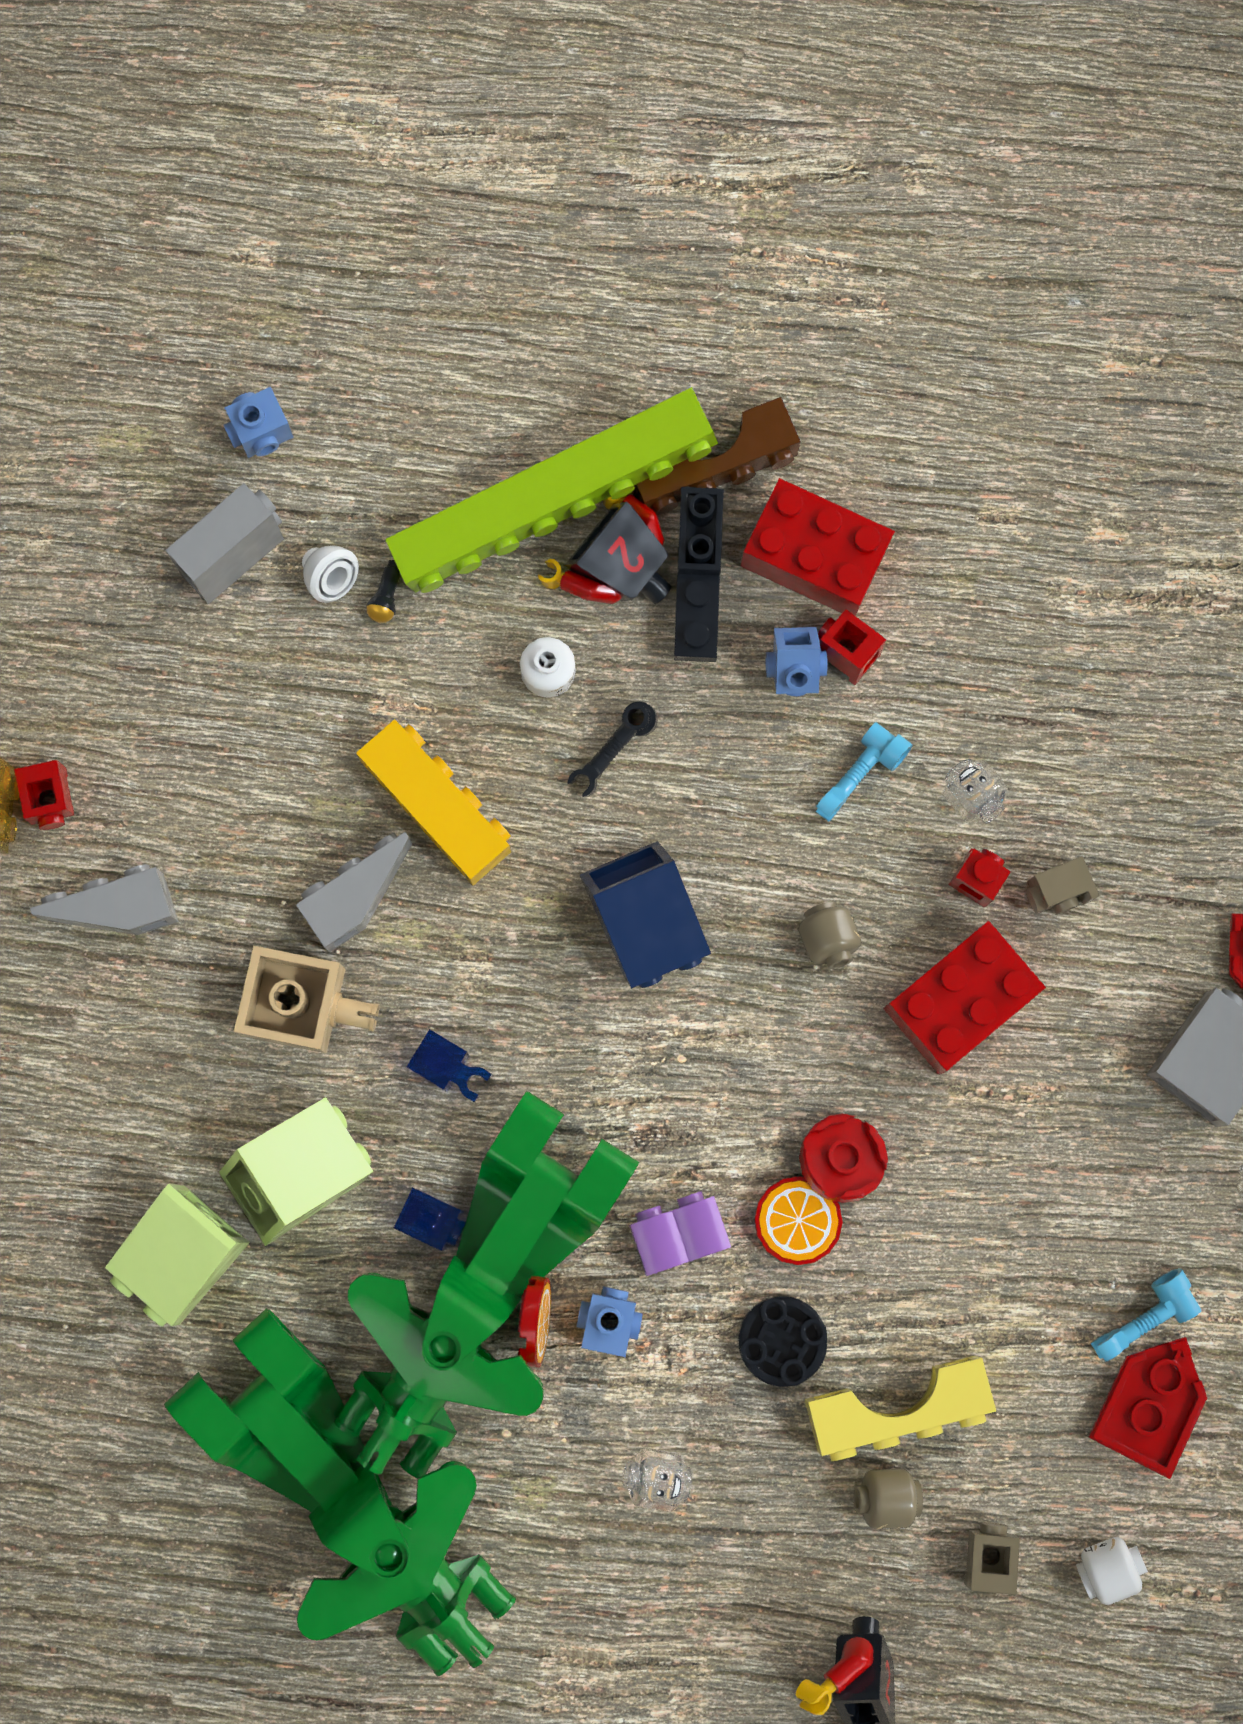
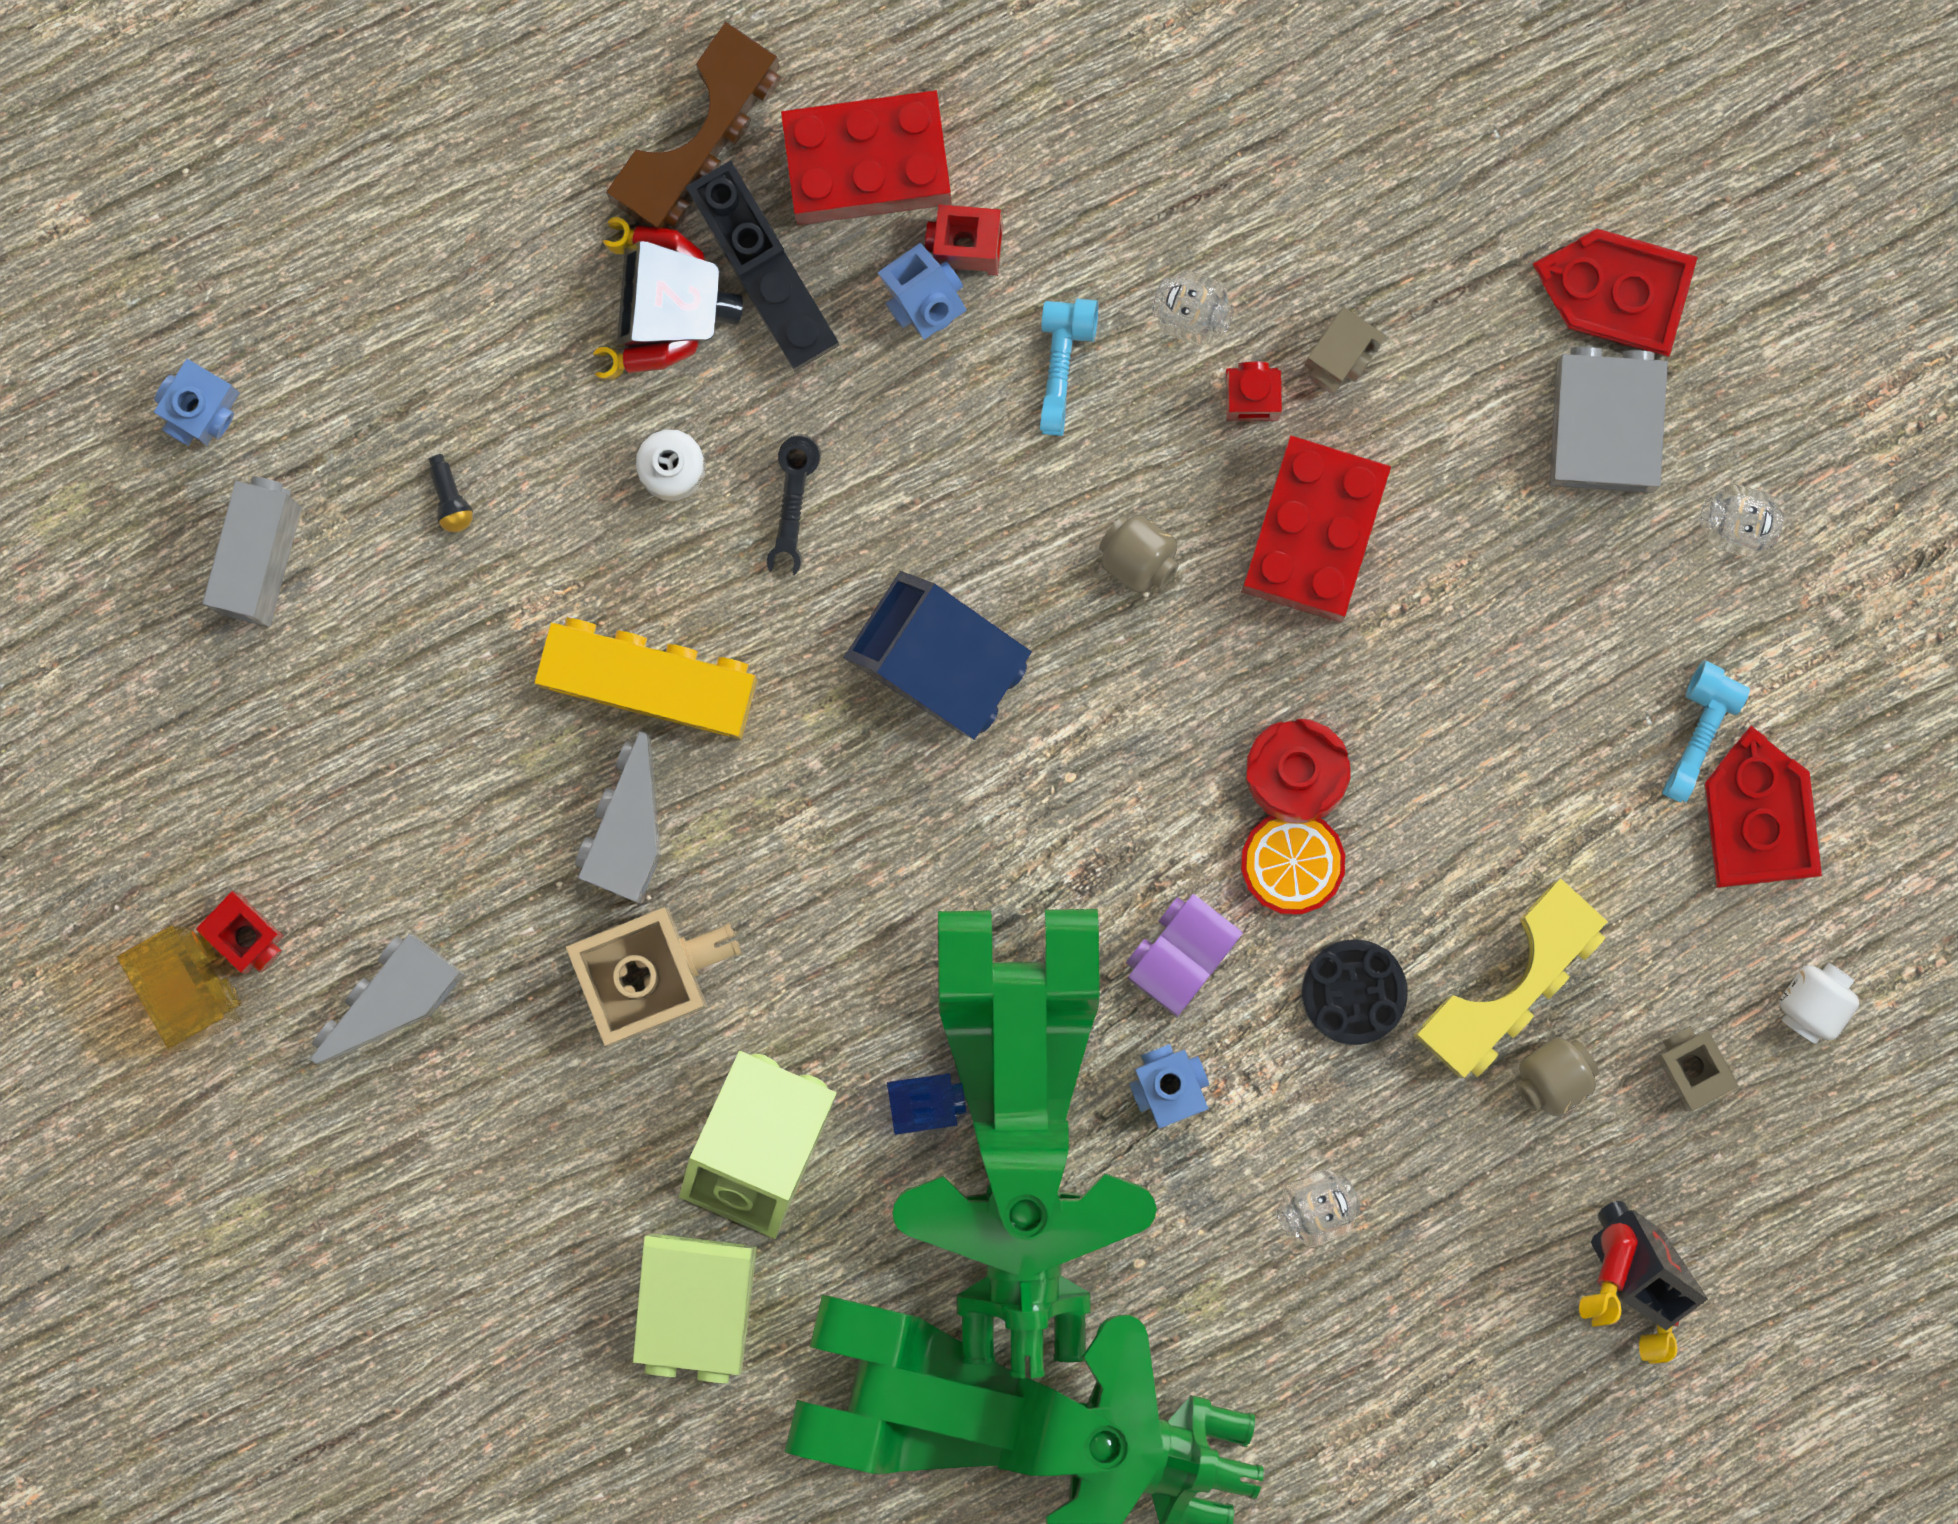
camera: 25 degrees left, 5 degrees up
(329, 572) = (376, 512): white brick -> none
(444, 1064) = (833, 940): clear blue brick -> none
(535, 1320) = (1095, 1131): red tile -> none
(552, 492) = (555, 279): lime brick -> none

